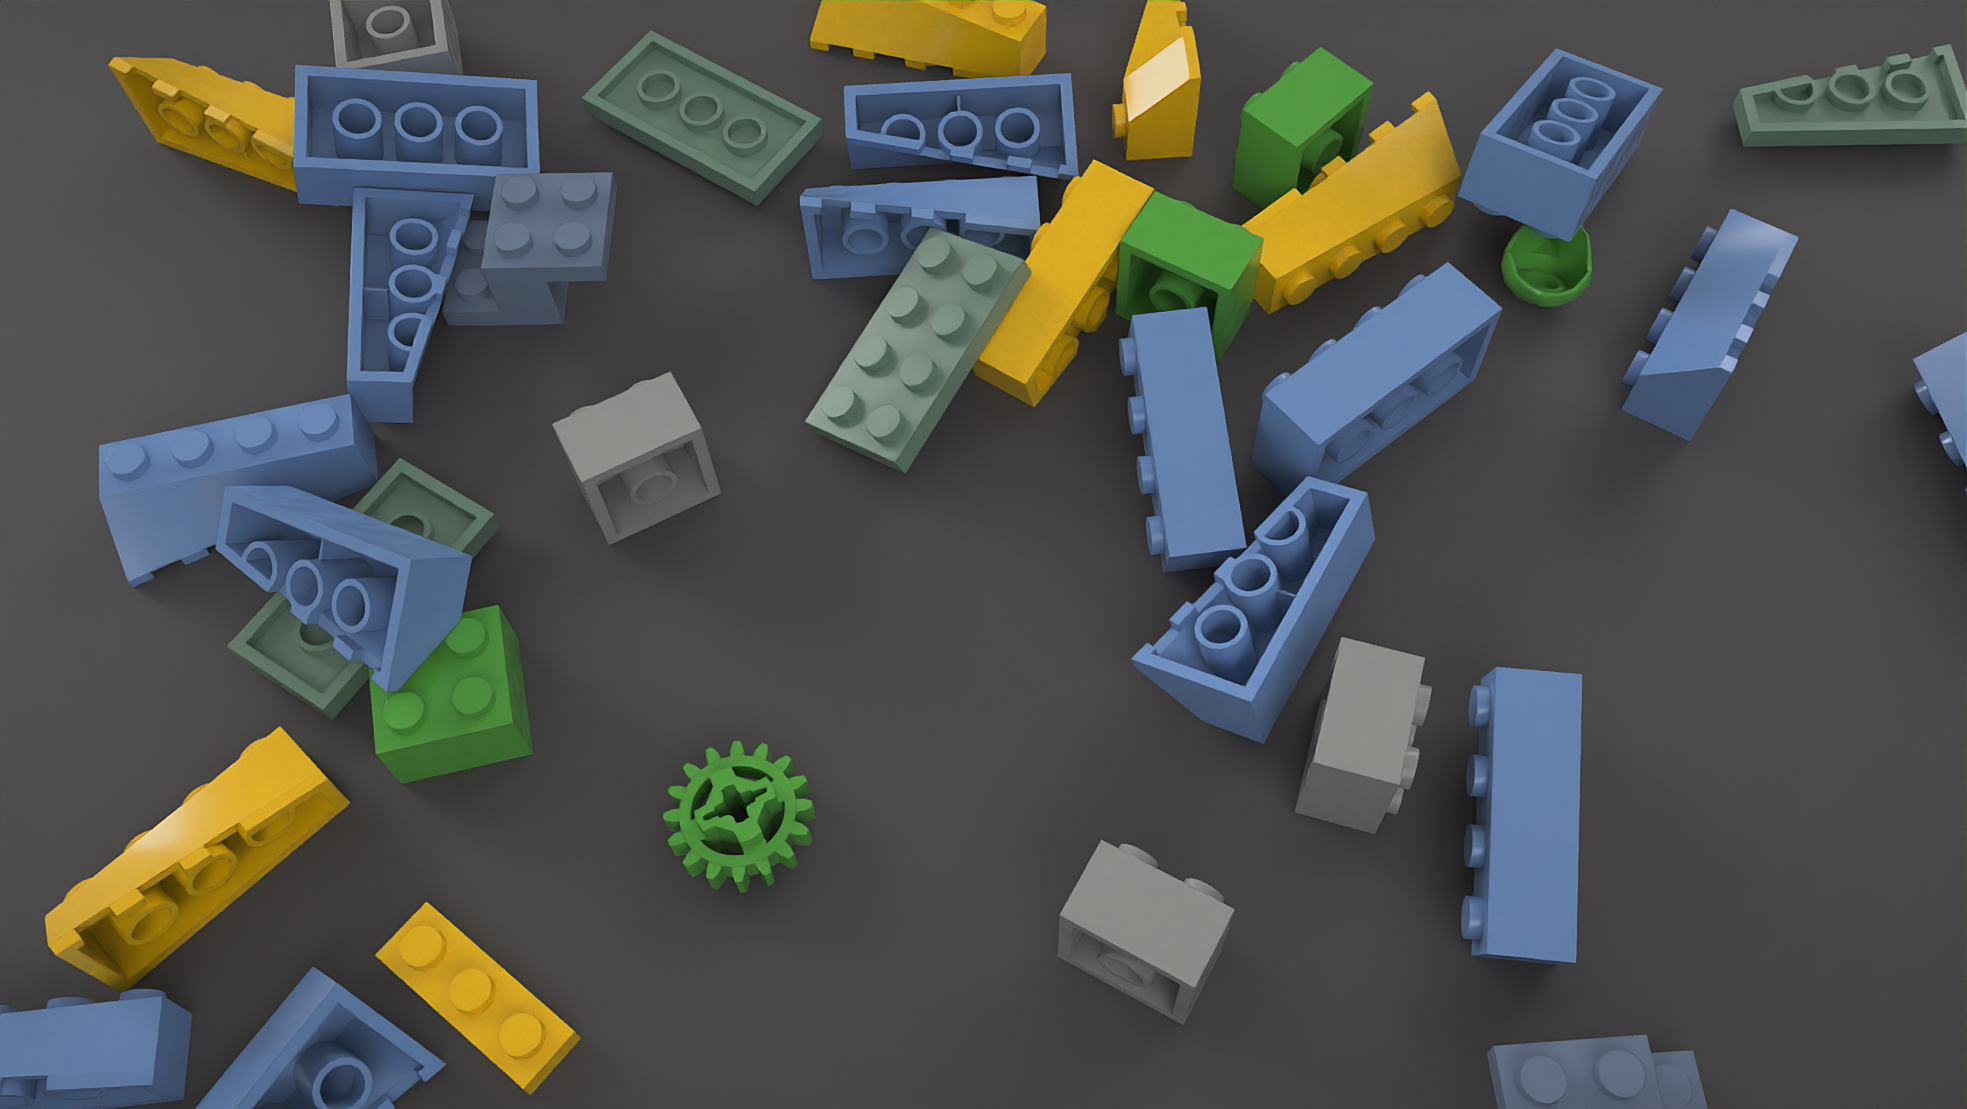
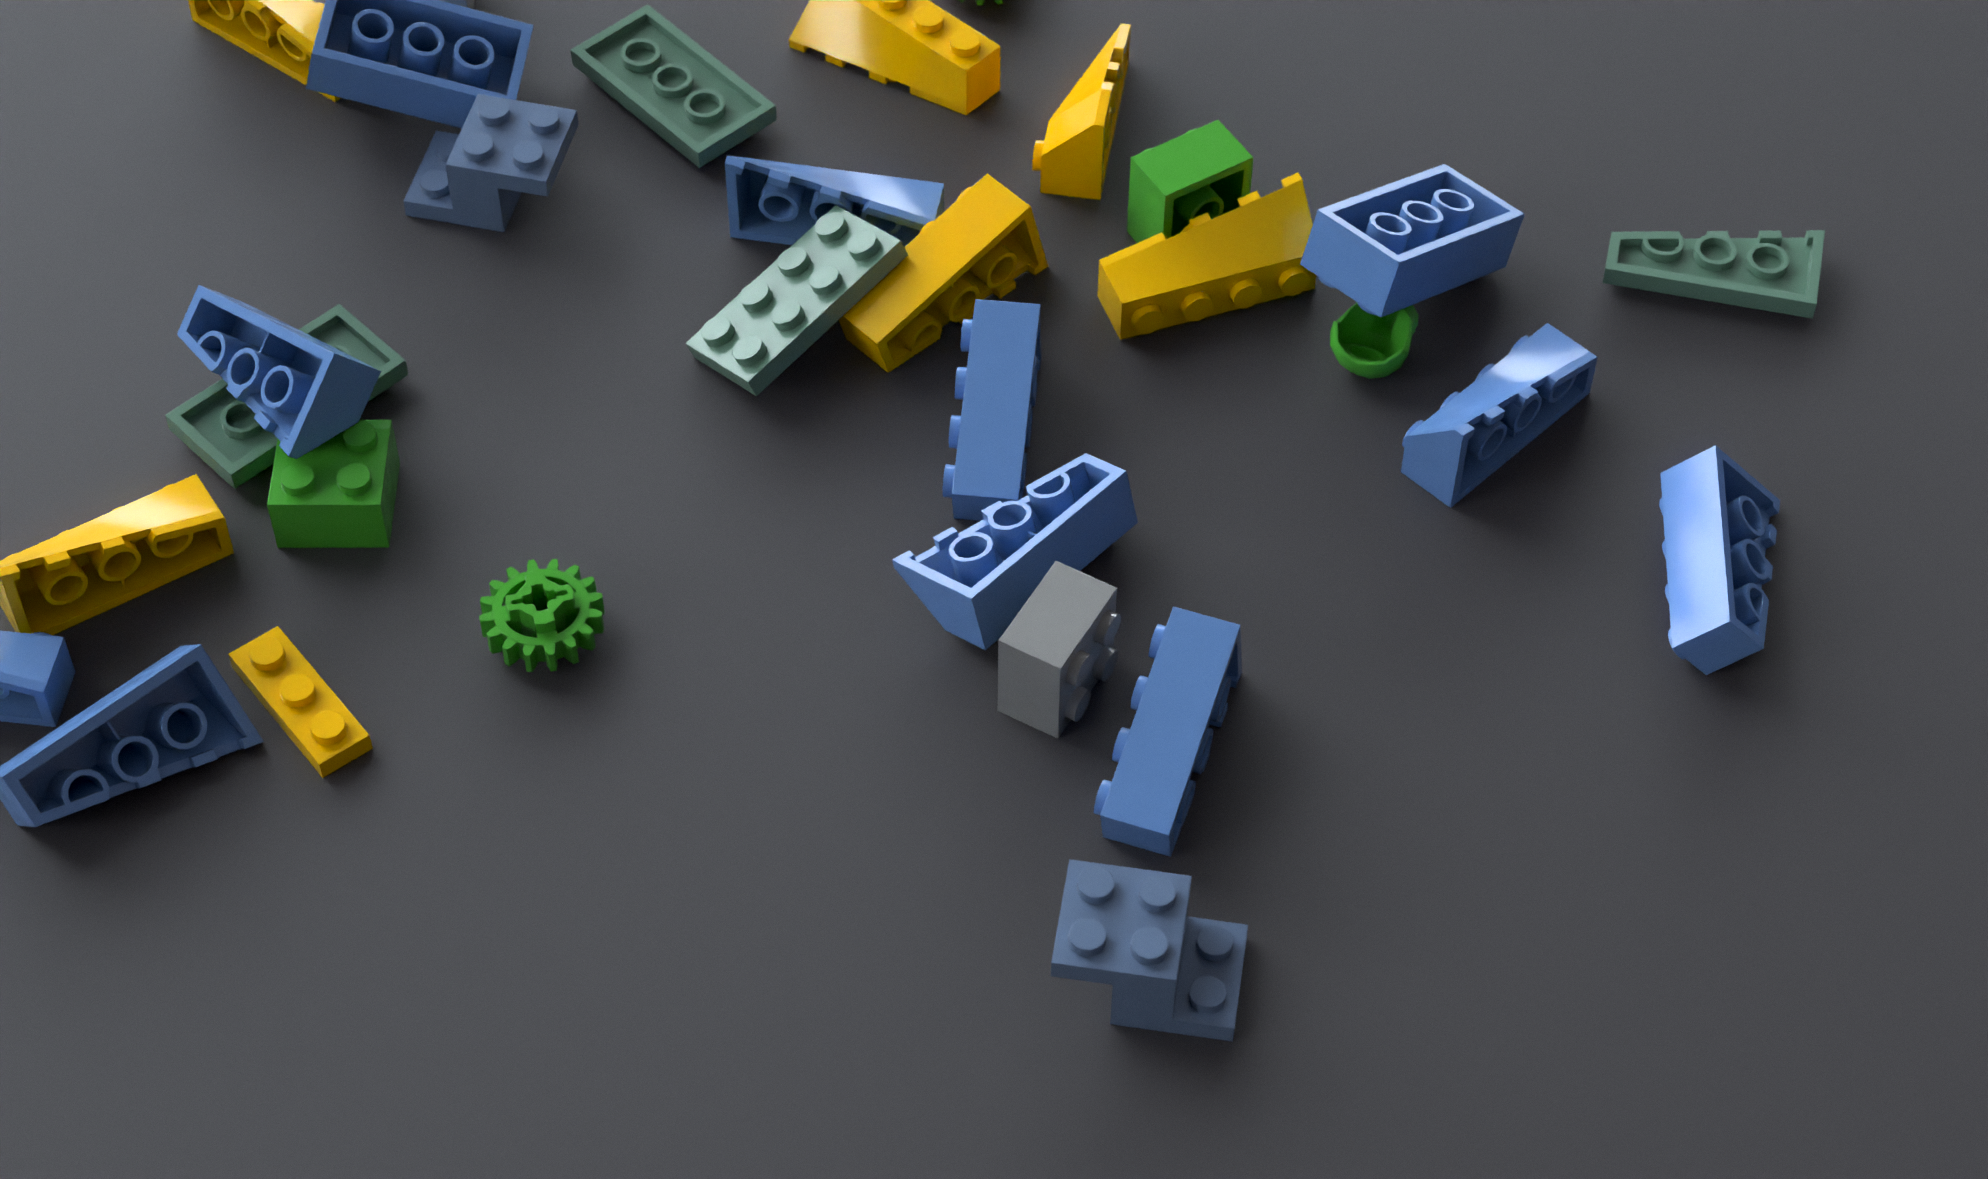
camera: 10 degrees right, 10 degrees down
(169, 486) = (148, 287): medium blue wedge -> none
(398, 277) = (374, 161): medium blue wedge -> none
(638, 457) = (536, 338): light grey brick -> none
(986, 122) = (892, 128): medium blue wedge -> none
(1143, 929) = (832, 746): light grey brick -> none
(1188, 261) = (1048, 267): bright green brick -> none
(1374, 381) = (1177, 396): medium blue brick -> none

